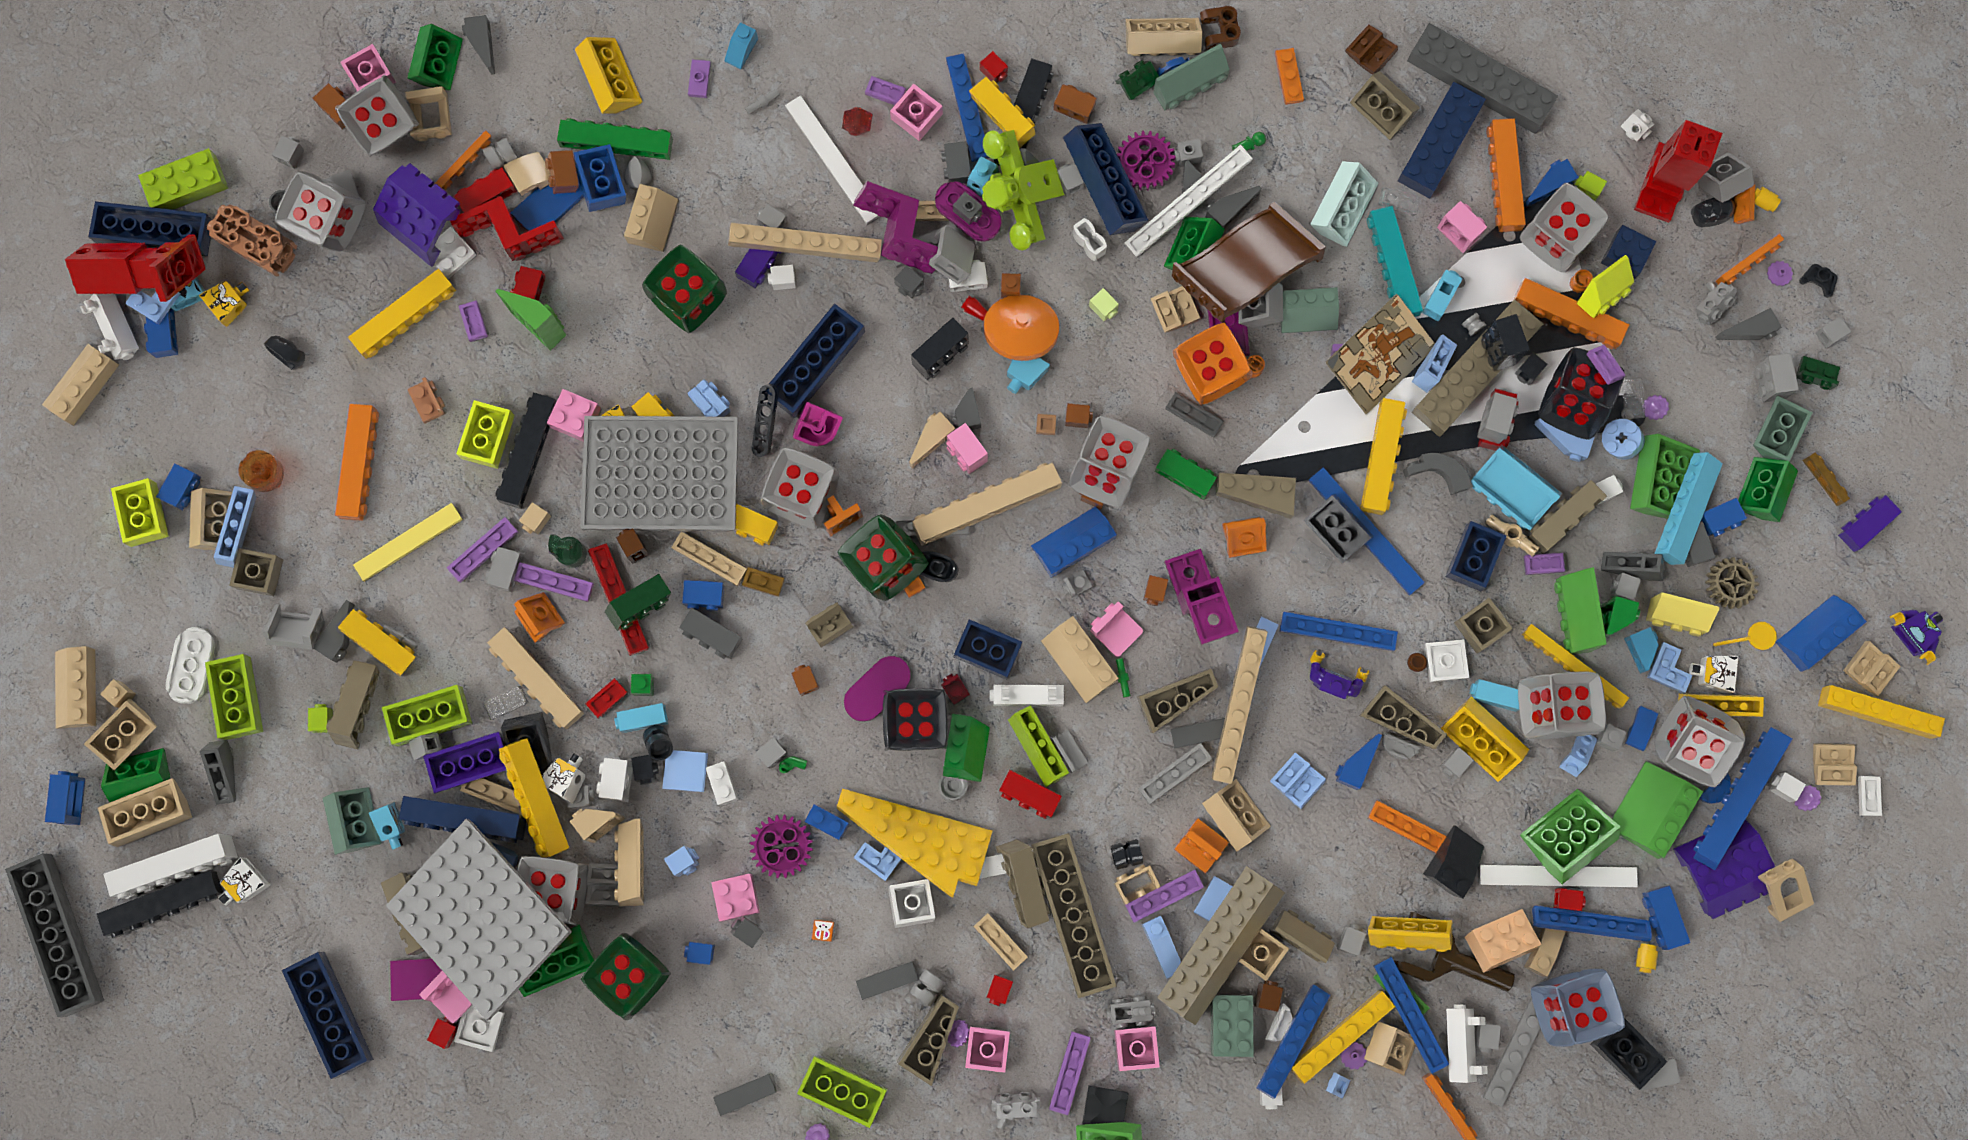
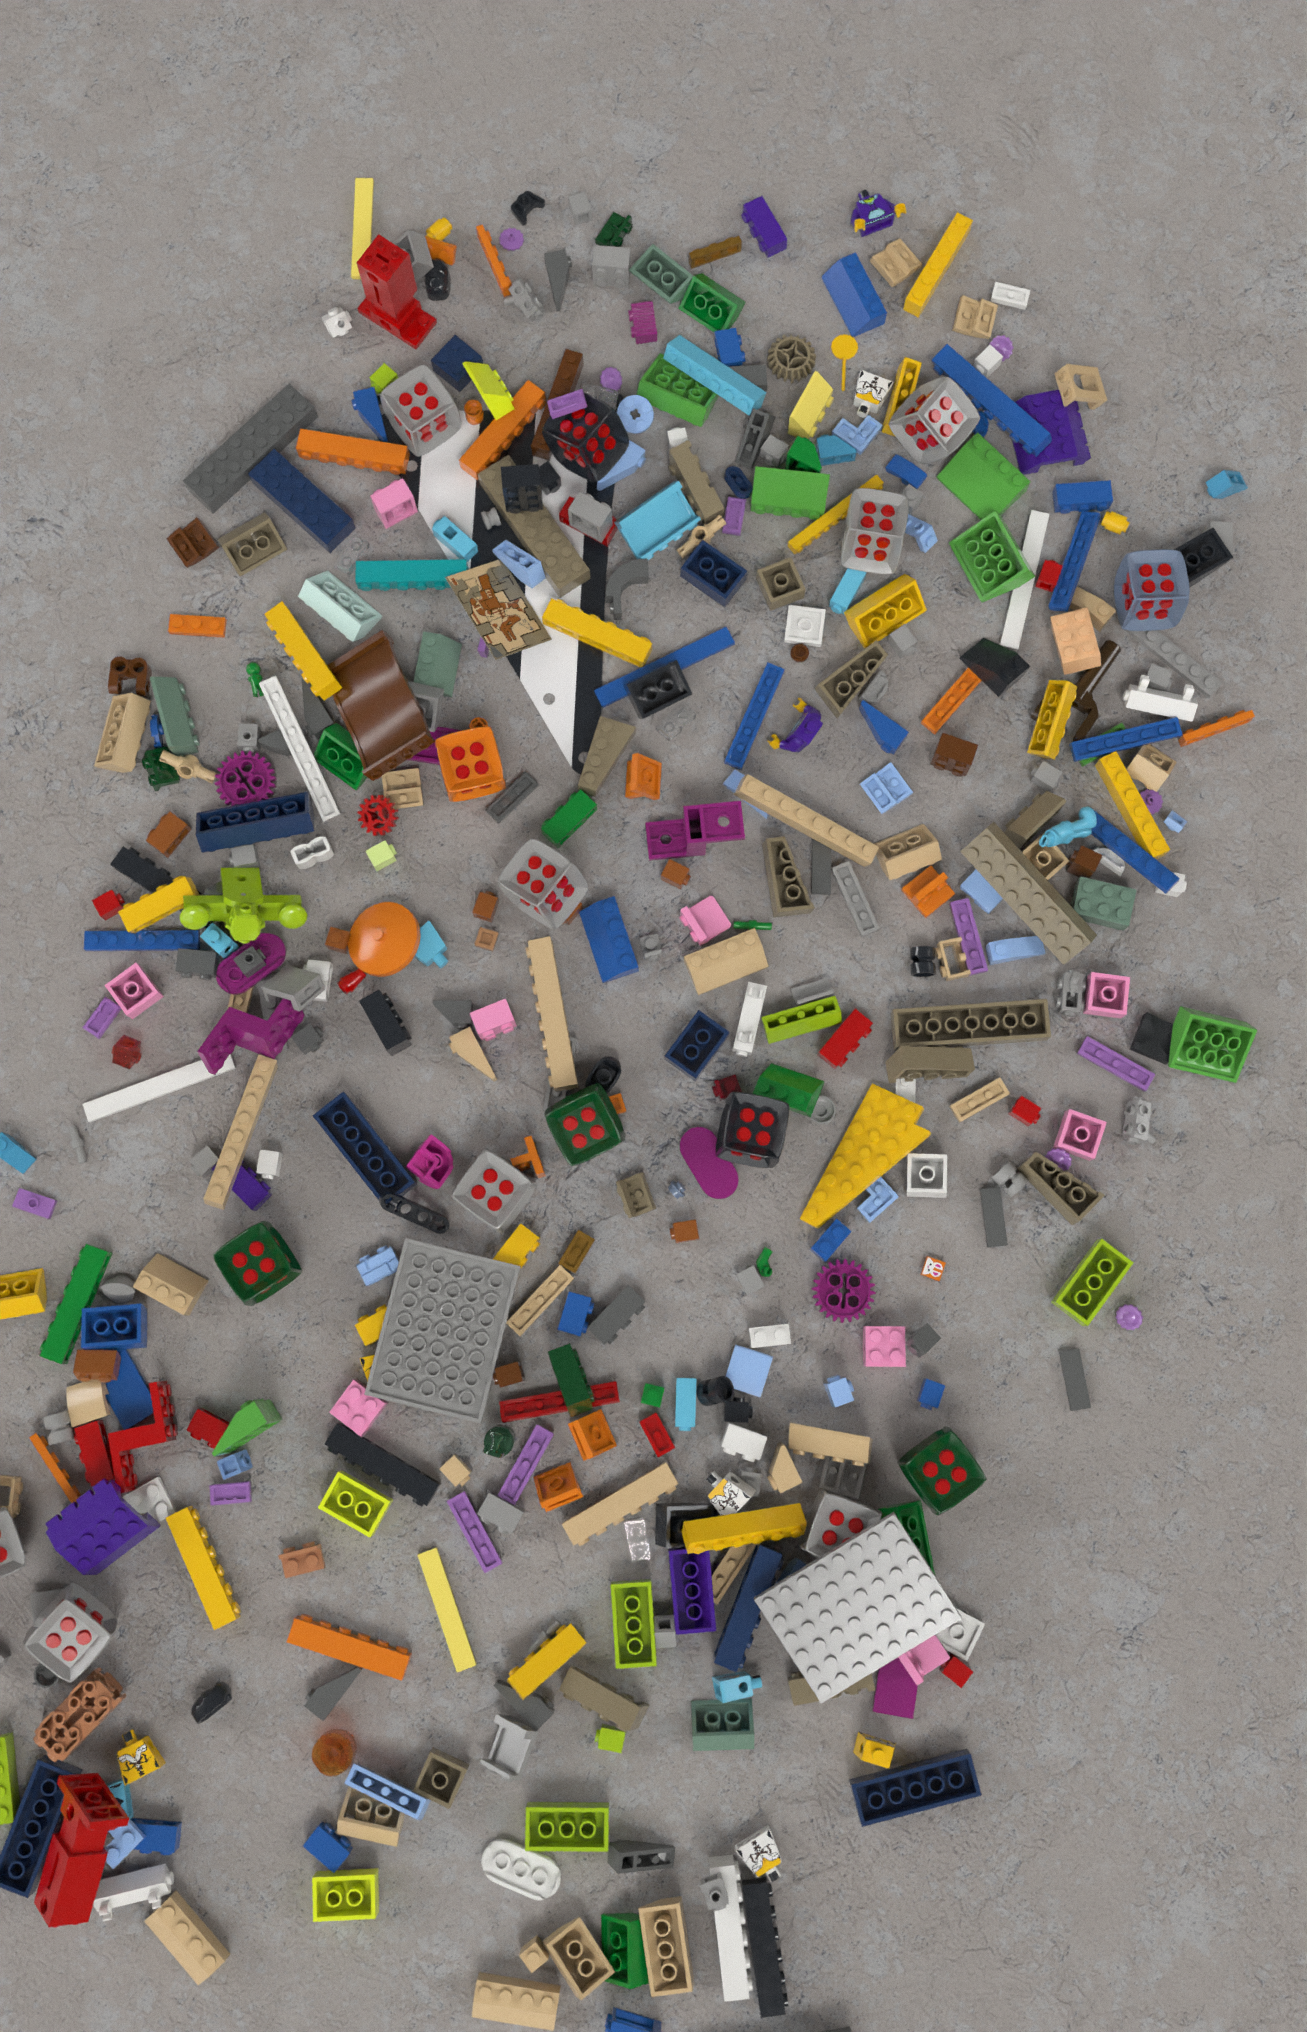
camera: 75 degrees left, 0 degrees up
(196, 842) = (715, 1892): none -> light grey brick
(310, 453) = (328, 1694): none -> dark grey slope
(354, 970) = (874, 1750): none -> yellow torso
(500, 318) = (234, 1464): none -> medium blue bracket
(593, 637) = (592, 1435): none -> orange bracket
(844, 663) = (677, 1189): none -> sand blue plate
(1142, 291) = (371, 821): none -> red gear
(1145, 103) = (188, 766): none -> tan pin
(1286, 178) = (303, 651): none -> yellow brick
(1295, 970) = (1065, 831): none -> medium azure piece
(1347, 839) = (954, 755): none -> reddish brown brick
(1579, 559) = (738, 482): none -> dark blue plate
(1632, 361) = (564, 383): none -> reddish brown brick
(1723, 1069) = (1226, 484): none -> dark azure slope
(1727, 425) = (644, 322): none -> magenta brick
(1758, 122) = (362, 221): none -> light yellow tile

